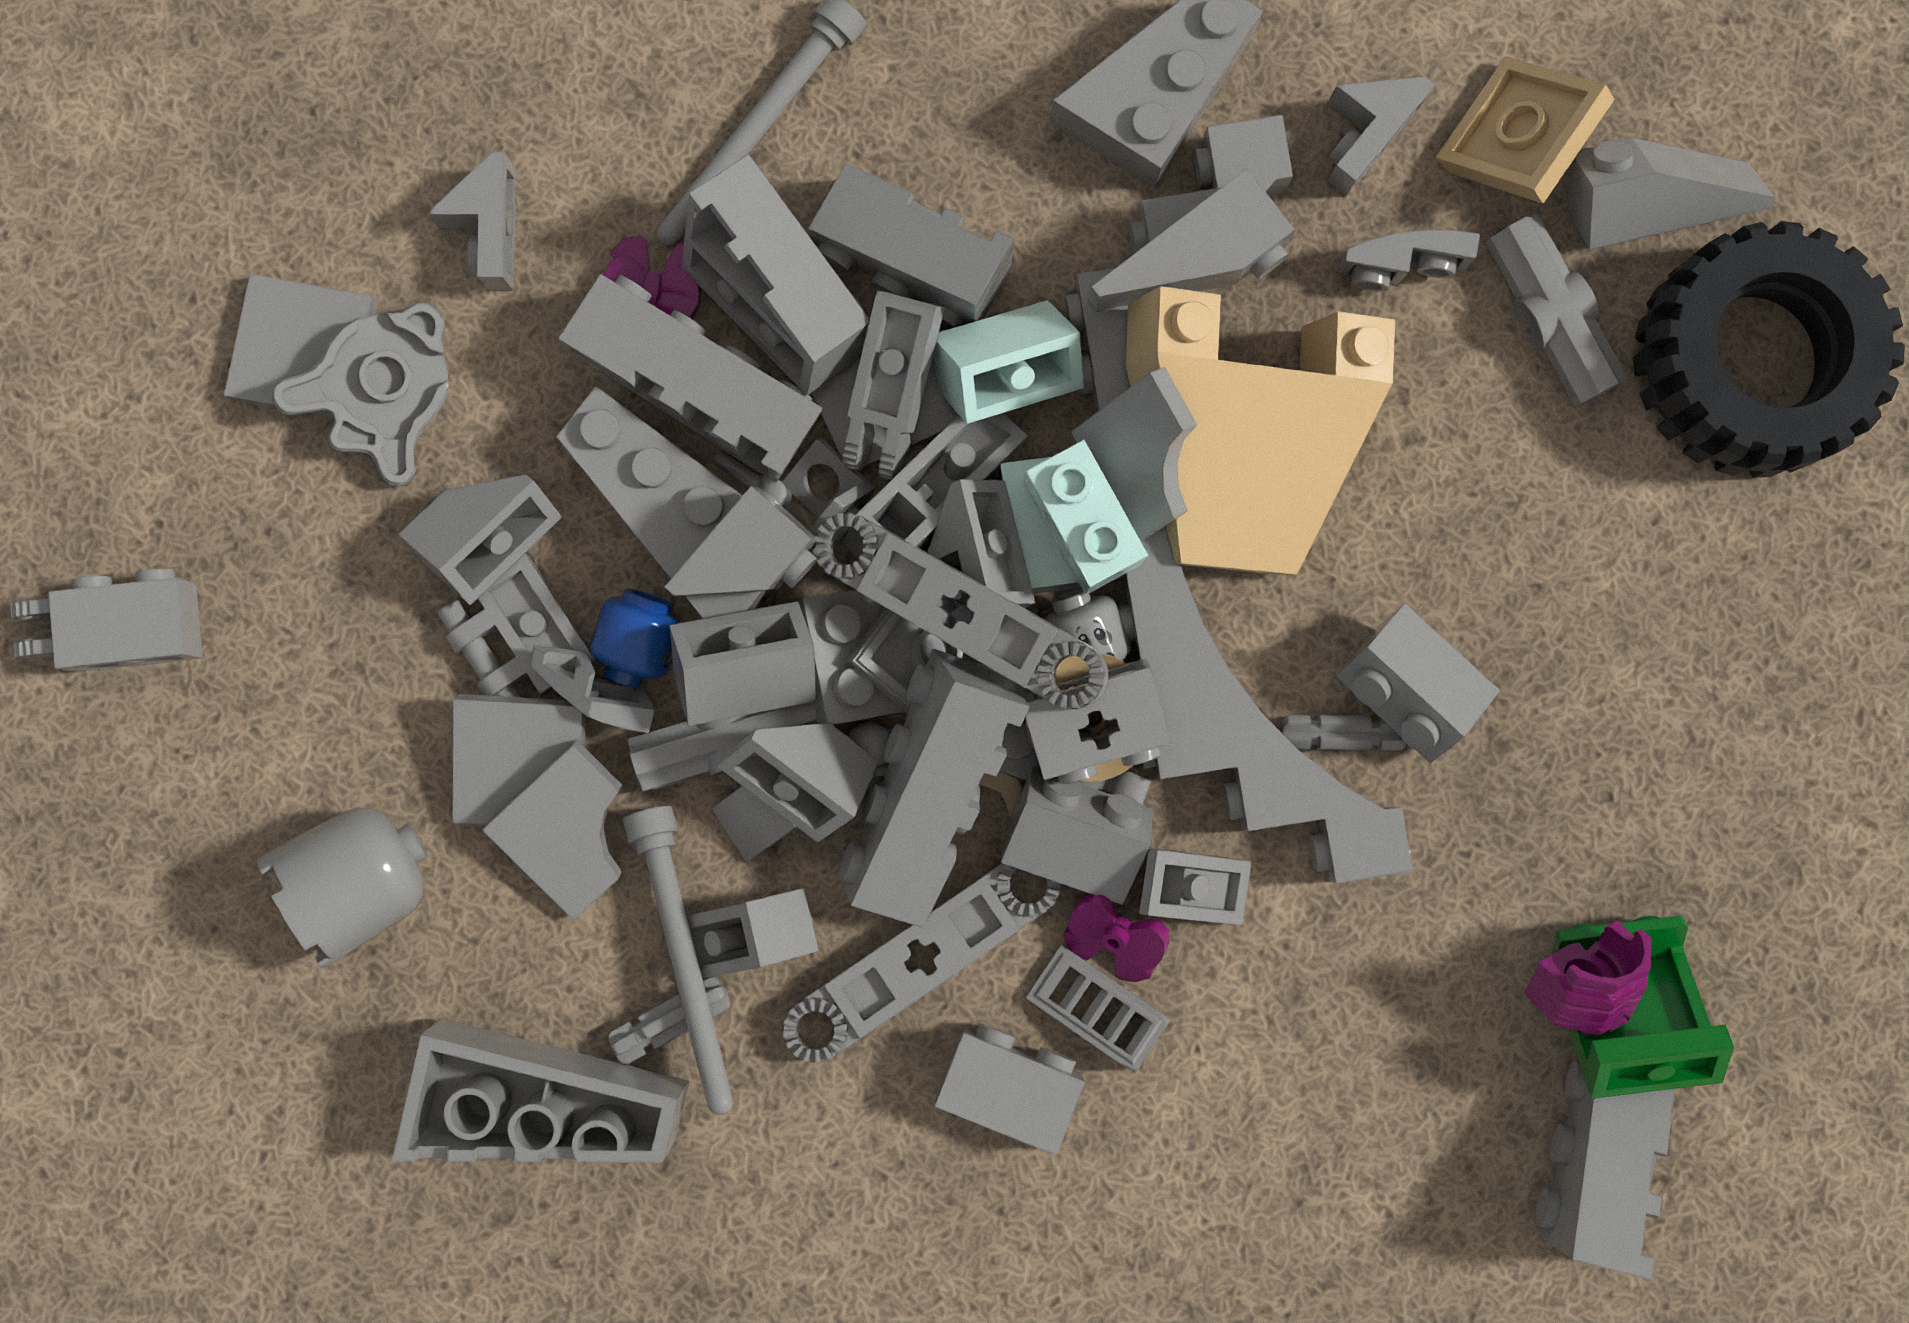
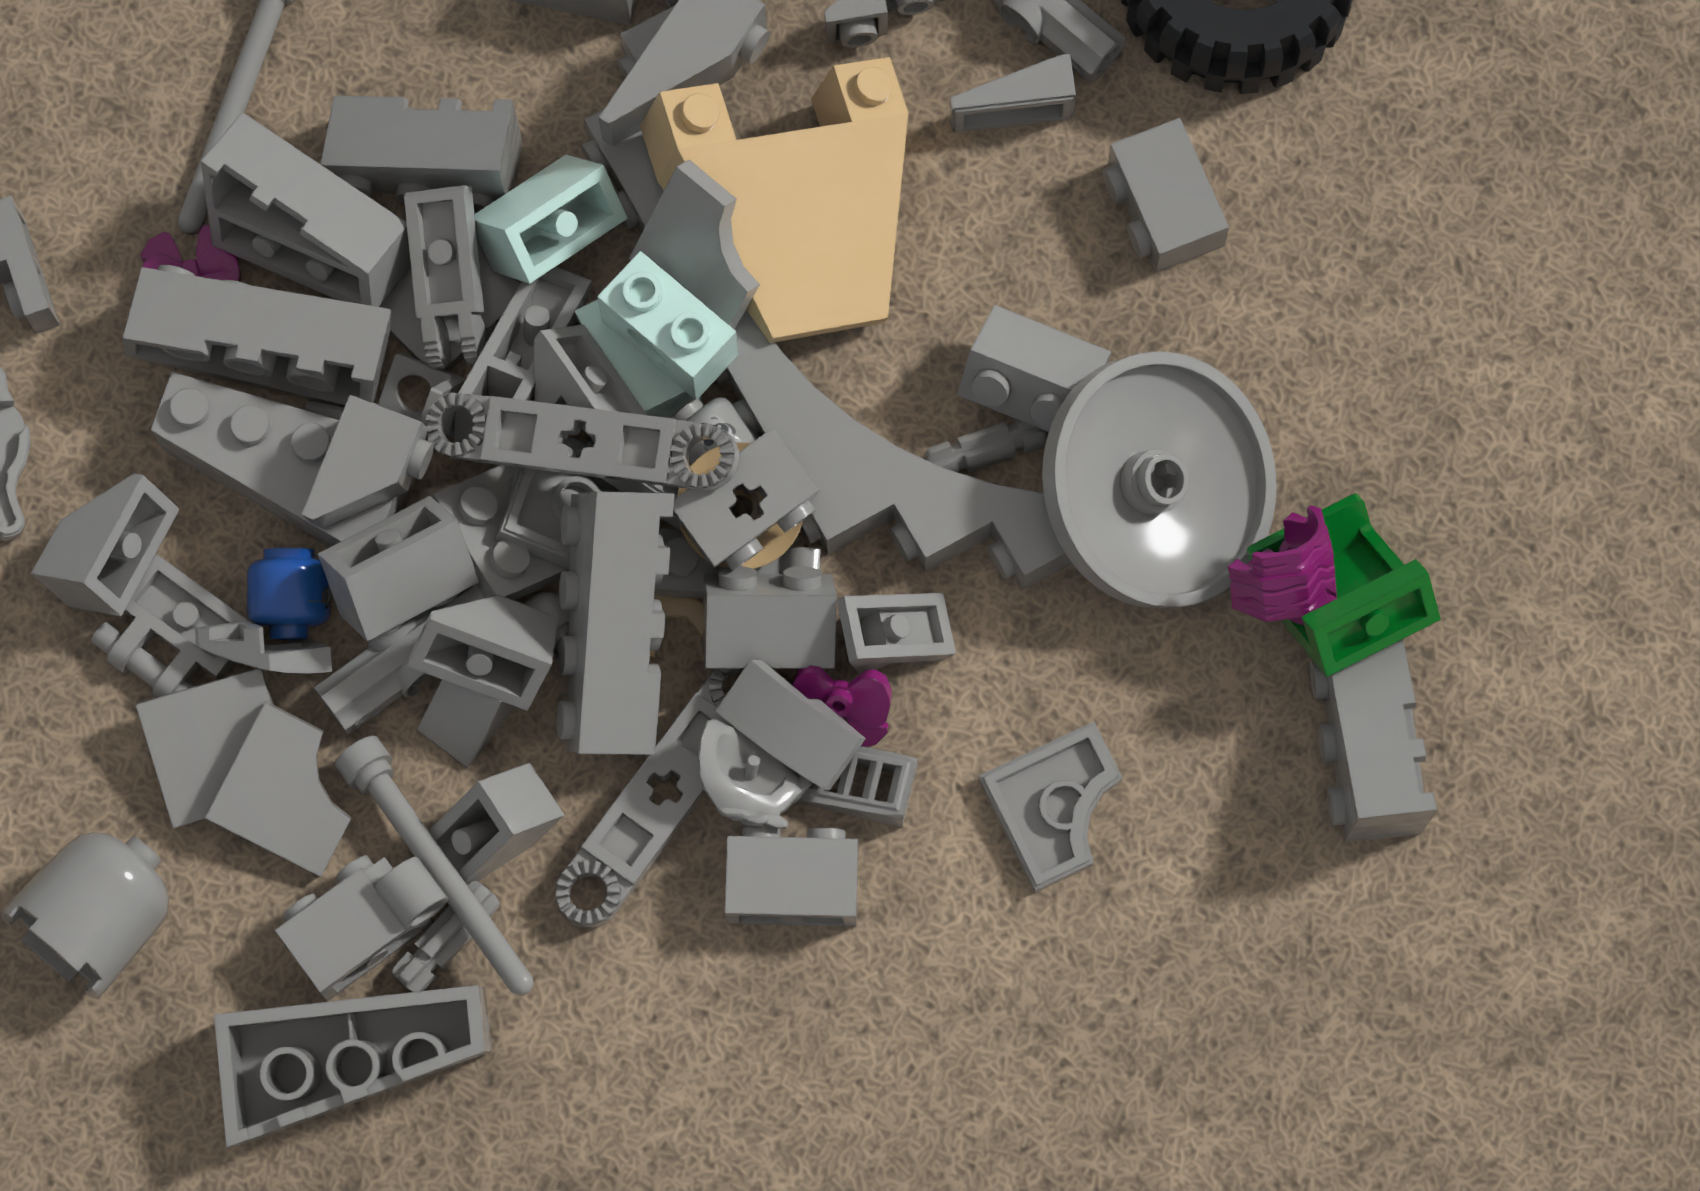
camera: 20 degrees left, 10 degrees down
(591, 980) = (360, 920): none -> light grey hinge
(1002, 982) = (745, 778): none -> light grey hat
(1059, 949) = (789, 725): none -> light grey slope
(1277, 1097) = (1048, 803): none -> light grey tile
(1499, 837) = (1158, 479): none -> light grey dish
(1518, 403) = (1021, 98): none -> light grey slope
(1608, 550) = (1165, 195): none -> light grey brick

